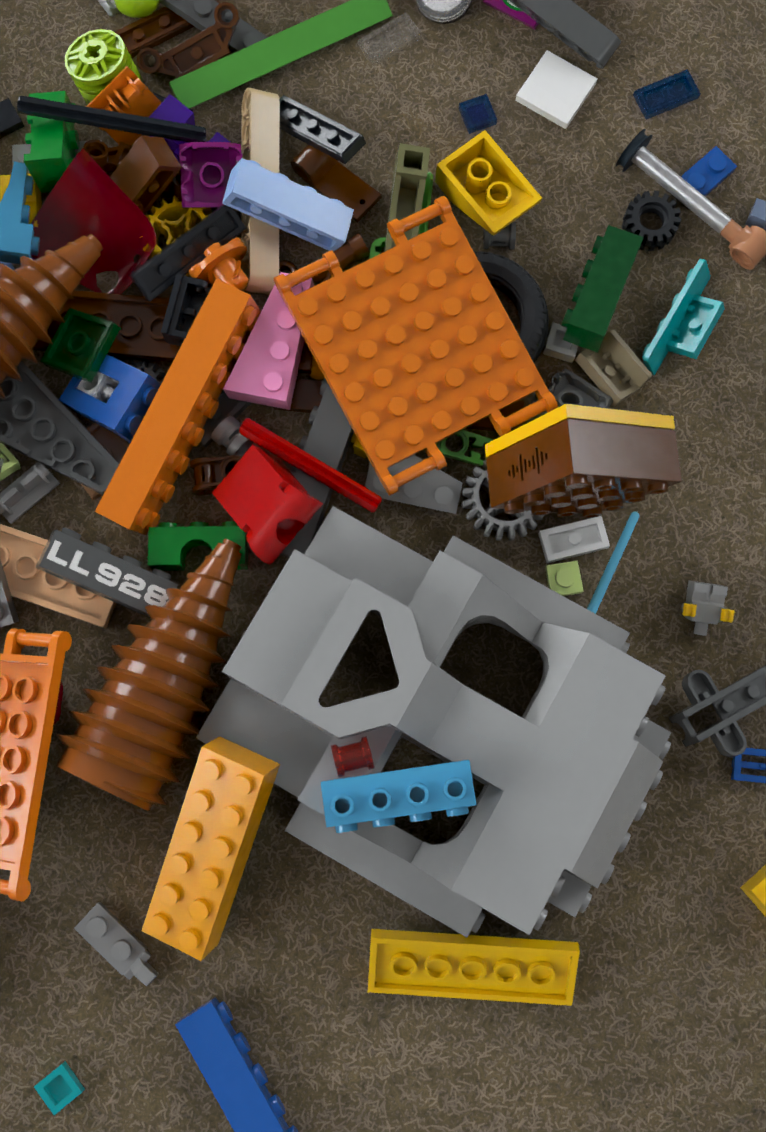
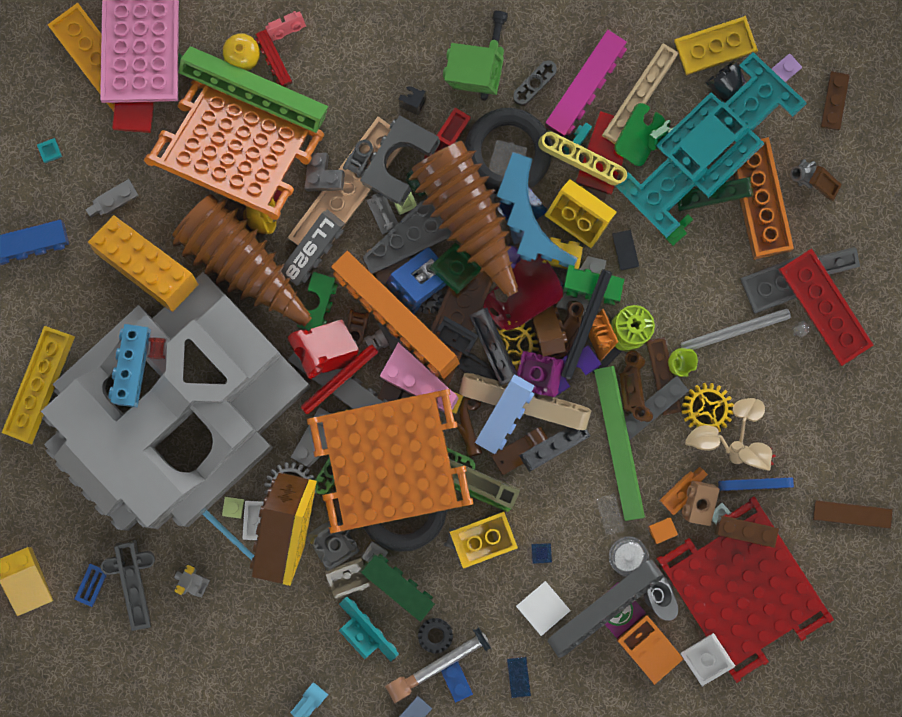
camera: 110 degrees right, 5 degrees up
(80, 676) = (260, 220): none -> yellow cylinder
(222, 263) = (477, 364): orange plate -> none

